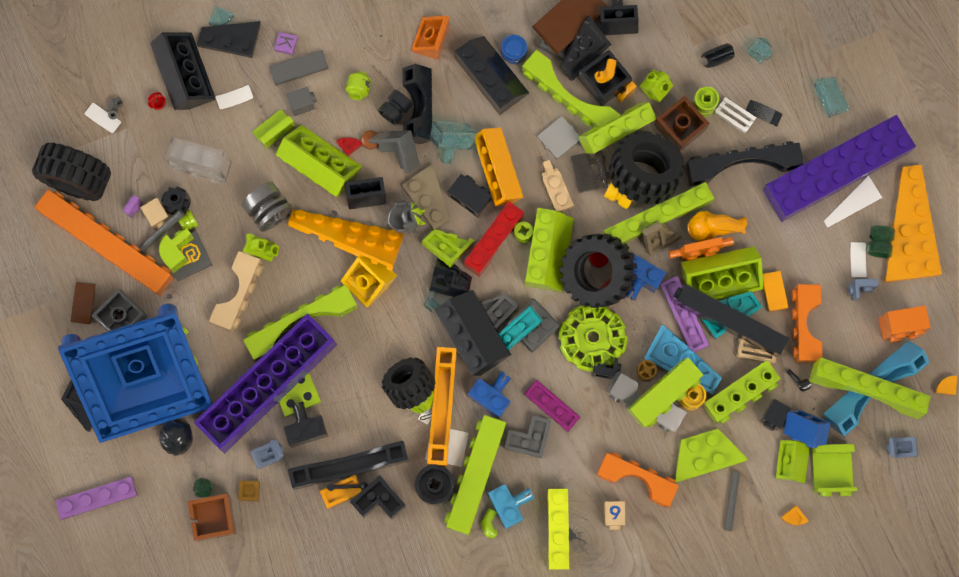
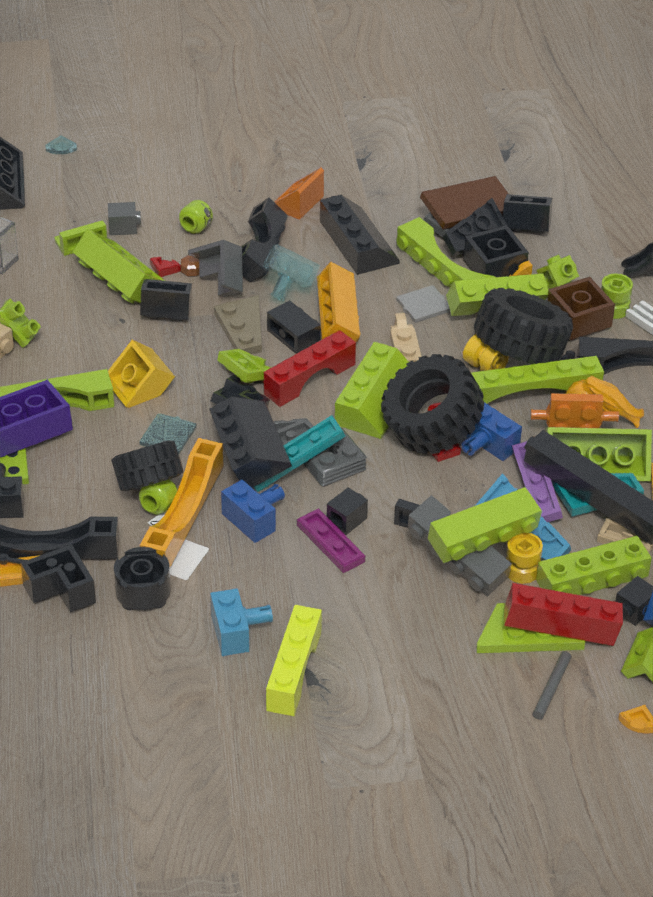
camera: 15 degrees right, 35 degrees down
(231, 38) = (65, 163): black wing -> none
(234, 97) = (46, 209): white sticker -> none
(267, 206) = (41, 287): flat silver wheel -> none
(286, 43) = (126, 176): medium lavender tile -> none
(298, 67) = (139, 194): dark grey tile -> none
(353, 237) = (132, 330): light orange wing -> none
(393, 109) = (236, 233): black wheel -> none
(405, 217) = (206, 324): dark grey hair -> none
(406, 327) = (168, 428): none -> clear light blue piece
(430, 303) = (206, 415): clear light blue hand -> none
(476, 475) = (190, 593): lime brick -> none
(487, 525) = (199, 638): lime arm -> none
(514, 49) = (391, 217): blue wheel -> none
(523, 236) = (346, 368): lime wheel -> none
(531, 443) = (289, 568): dark grey plate -> none
(558, 378) = (347, 510): none -> black brick
(581, 340) = (411, 465): lime plate -> none
(584, 172) = (445, 335): clear smoke plate -> none
(608, 73) = (499, 240): light orange arm -> none
(614, 514) = (379, 660): tan brick -> none
(658, 237) = (520, 396): dark tan wing -> none
(660, 489) = (396, 614): orange arch -> none
(731, 450) = (563, 614): none -> red brick

